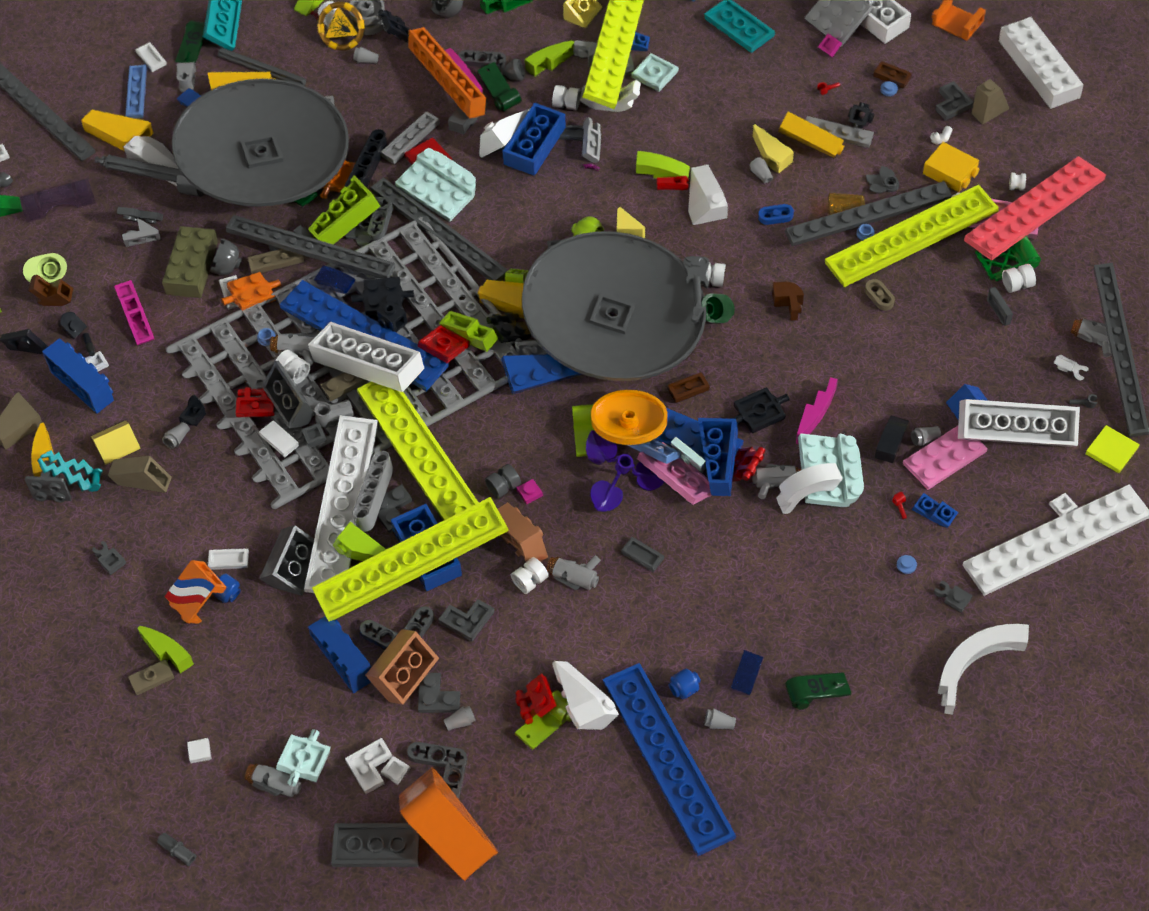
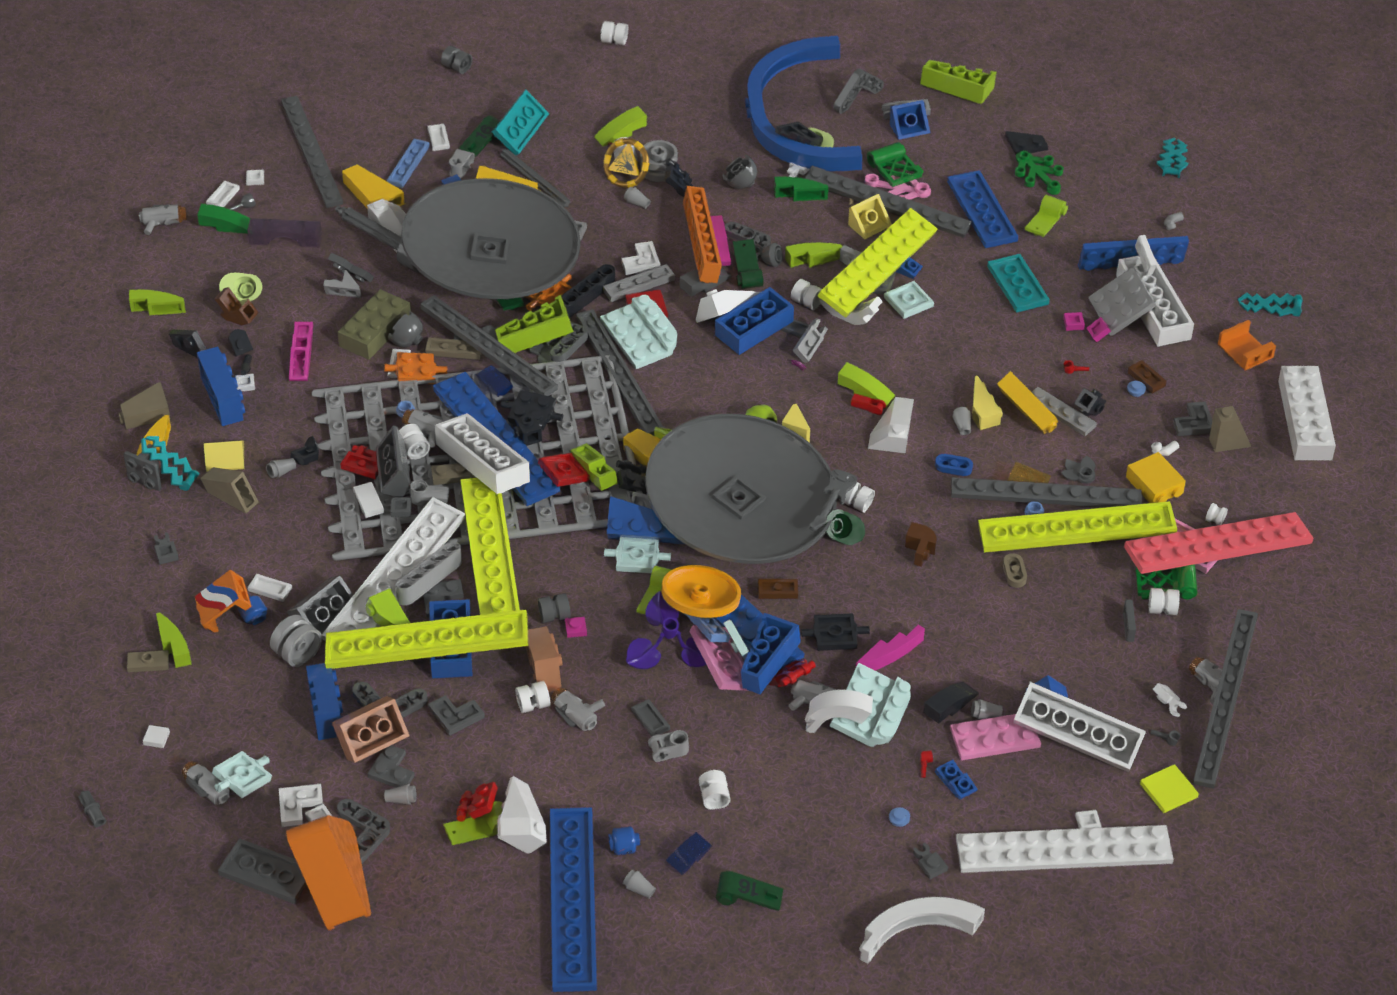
camera: 20 degrees right, 10 degrees down
(285, 605) = (295, 640): none -> light grey wheel
(404, 114) = (644, 261): none -> white plate
(548, 401) = (637, 555): none -> light aqua plate
(671, 577) = (670, 745): none -> light grey piece
(737, 602) = (714, 789): none -> white wheel
(805, 44) = (1074, 321): none -> dark pink plate

